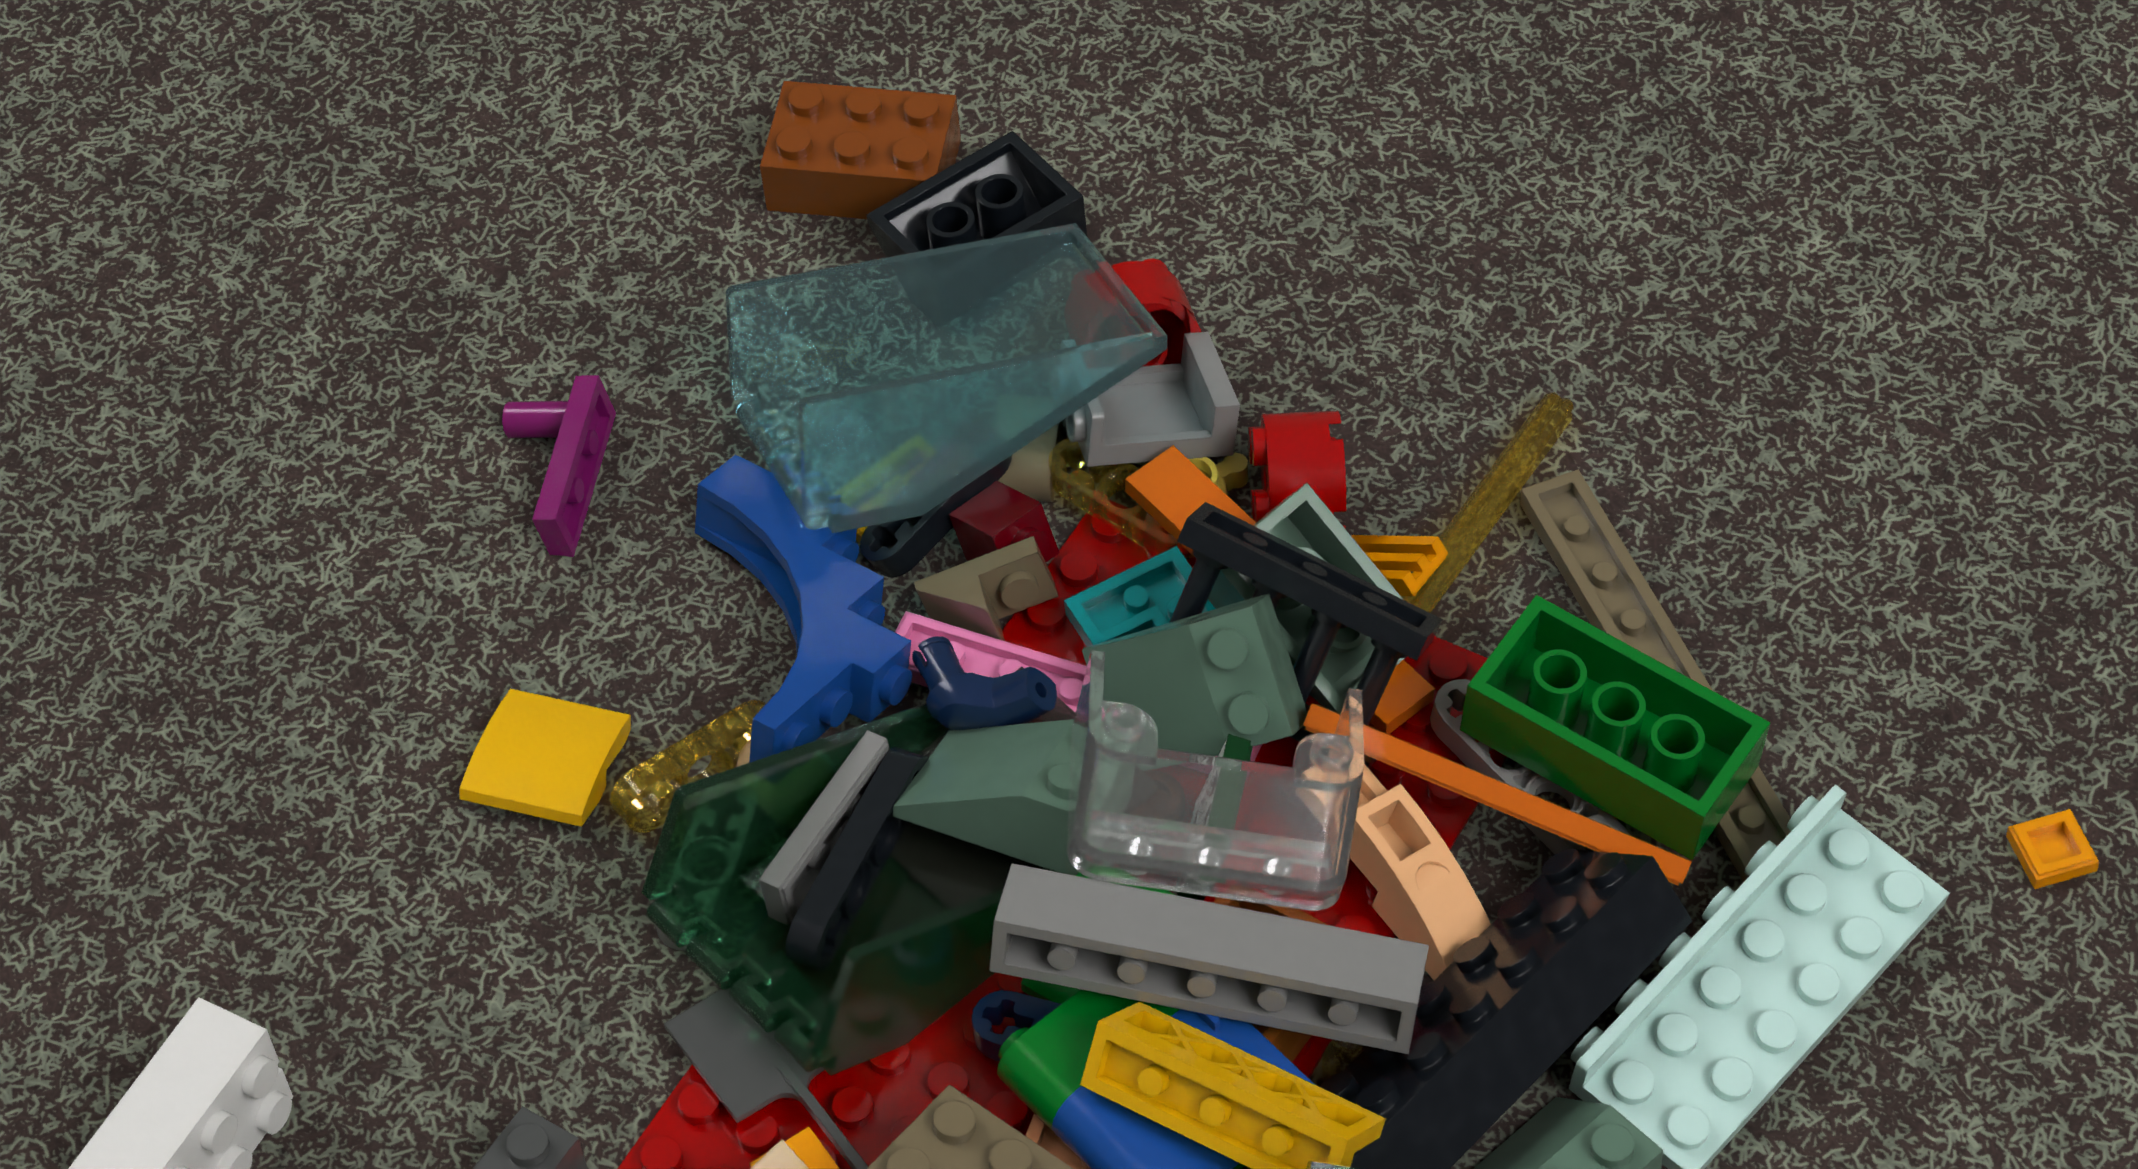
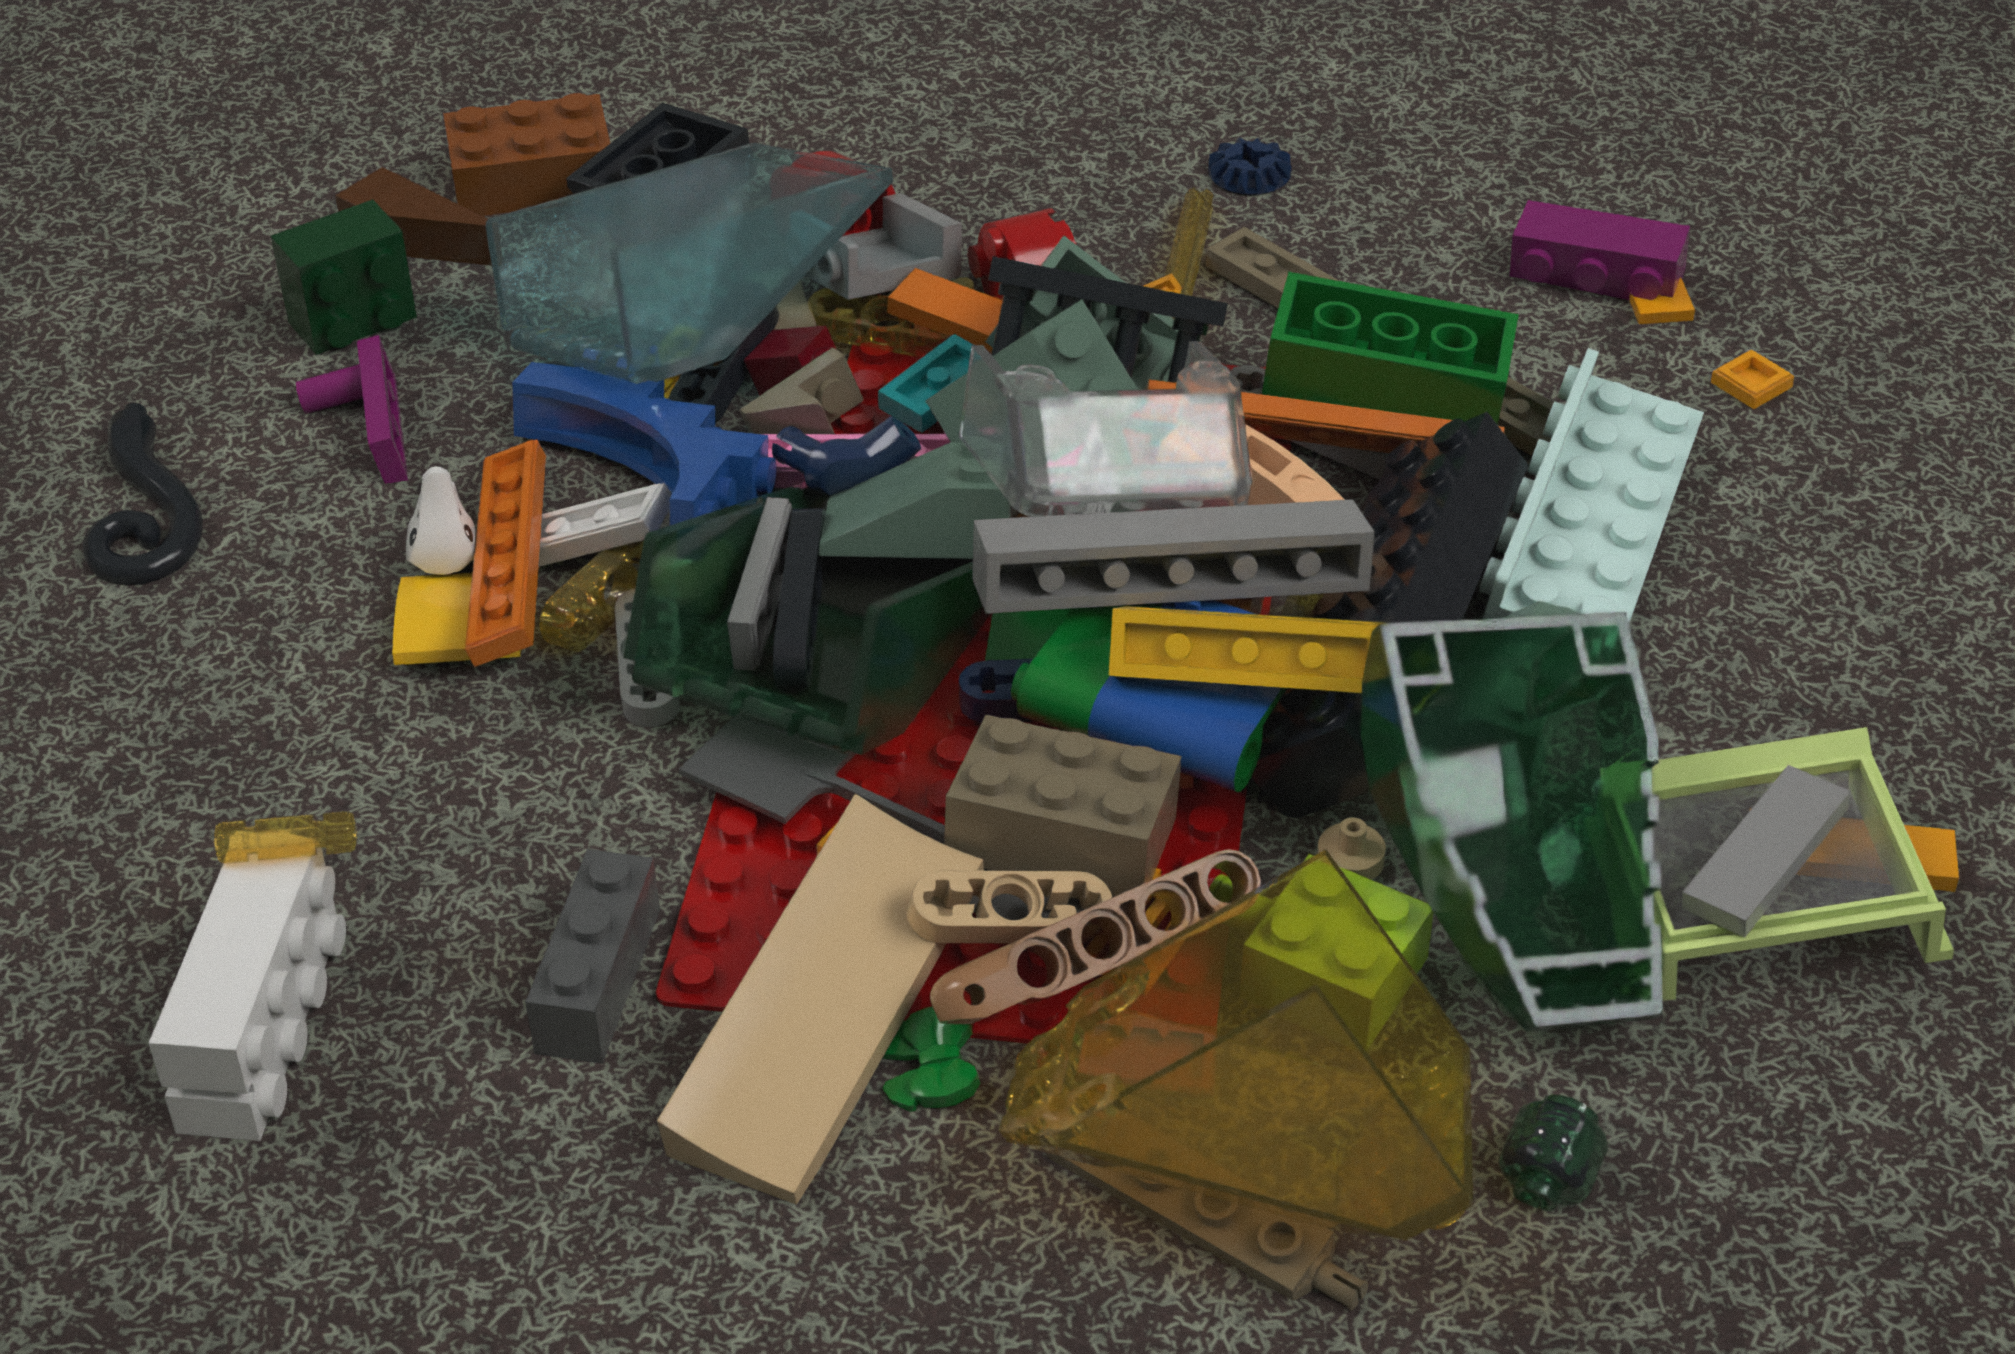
camera: 25 degrees left, 10 degrees down
(230, 1026) = (285, 837): none -> clear yellow axle
(320, 450) = (132, 453): none -> black plant
(561, 649) = (440, 531): none -> white animal
(596, 285) = (344, 276): none -> dark green brick
(611, 698) = (506, 554): none -> orange tile
(697, 692) = (602, 523): none -> white tile
(700, 209) = (429, 222): none -> reddish brown slope
(1615, 379) = (1233, 172): none -> dark blue gear
(1963, 622) = (1598, 251): none -> magenta brick
(2008, 703) = (1664, 308): none -> light orange tile

